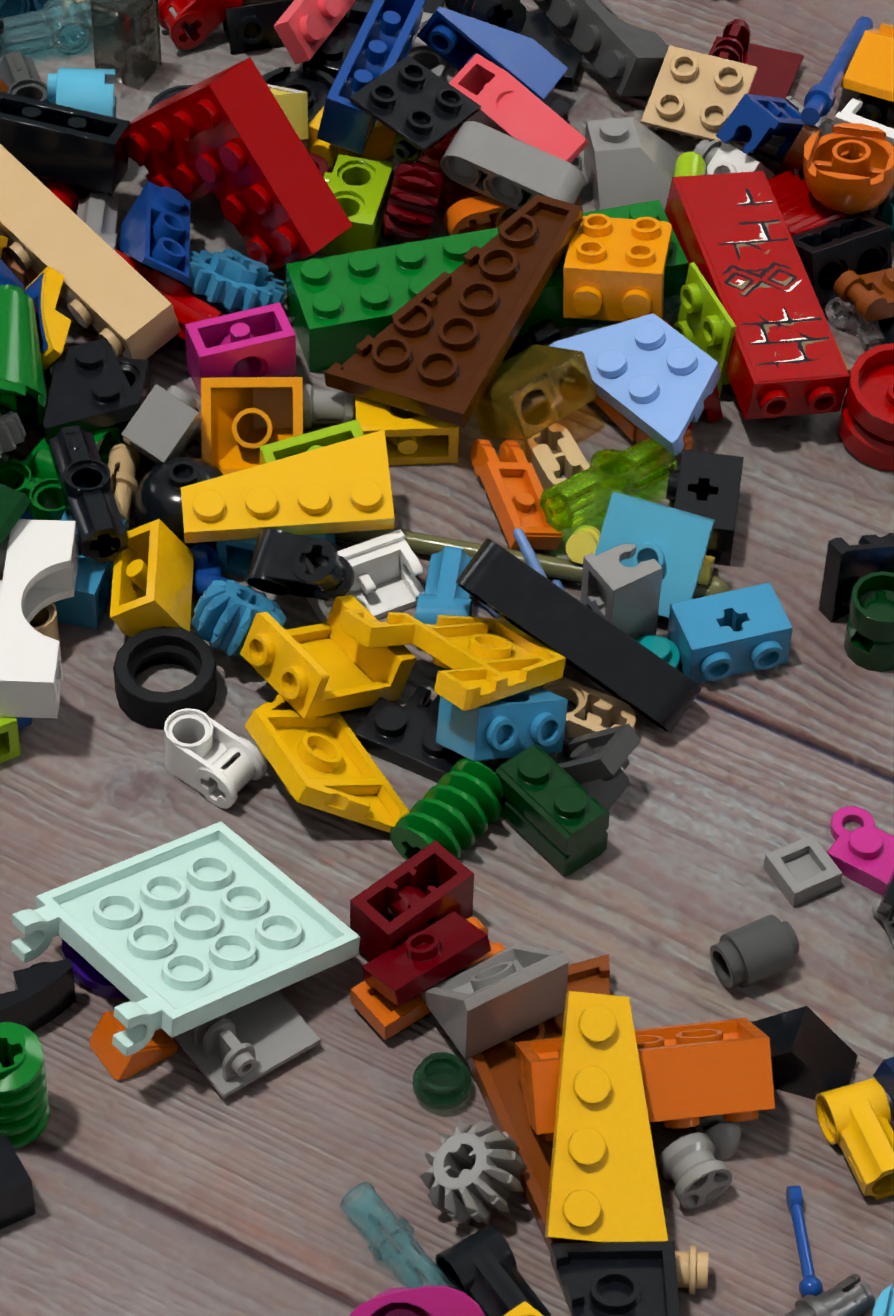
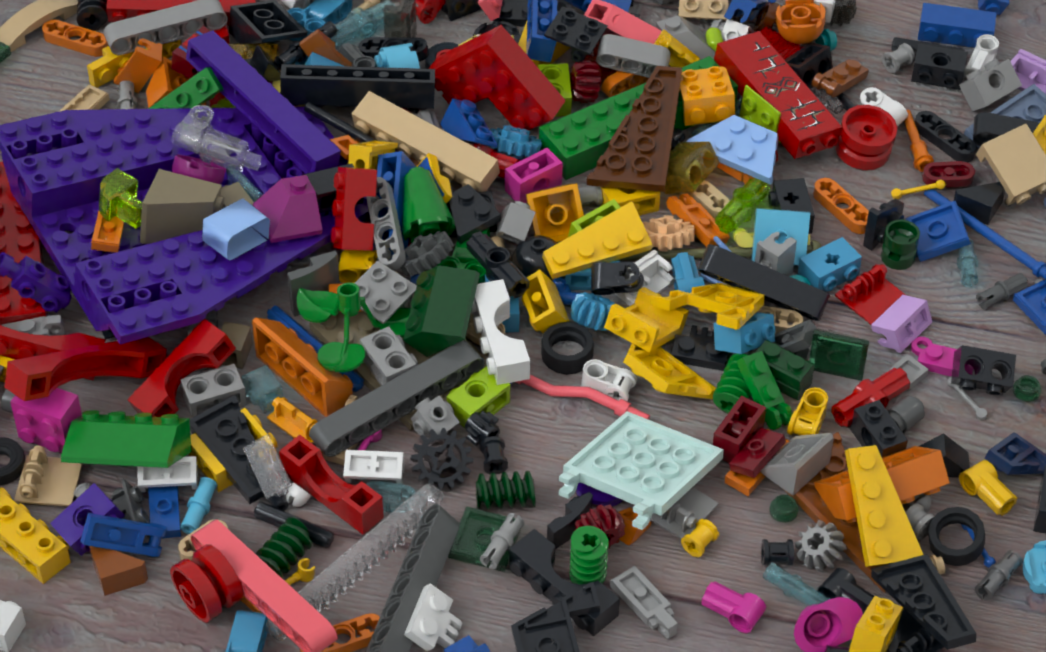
camera: 15 degrees left, 0 degrees up
(69, 1028) = (607, 520): none -> dark red gear
(91, 1198) = (645, 601): none -> light grey hinge
(135, 84) = (372, 45): none -> black beam
(211, 808) = (618, 406): none -> coral bar
(251, 1099) = (700, 537): none -> yellow bush
(265, 1262) = (741, 610): none -> dark pink piece
(388, 1164) = (777, 552): none -> black bush
(442, 505) = (669, 233): none -> light nougat gear
(494, 840) = (765, 389): none -> green hinge
(561, 915) = (810, 413): none -> yellow piece
(604, 183) = (680, 55): none -> yellow hinge
(666, 801) = (838, 354): none -> clear green slope
(685, 969) = (876, 427): none -> black brick
(704, 901) = (867, 391): none -> red piece
(746, 1178) = (956, 515): none -> black tyre
(793, 707) = (870, 294): none -> red hinge
(806, 506) = (840, 195): none -> orange beam
(827, 772) = (902, 322): none -> lavender hinge

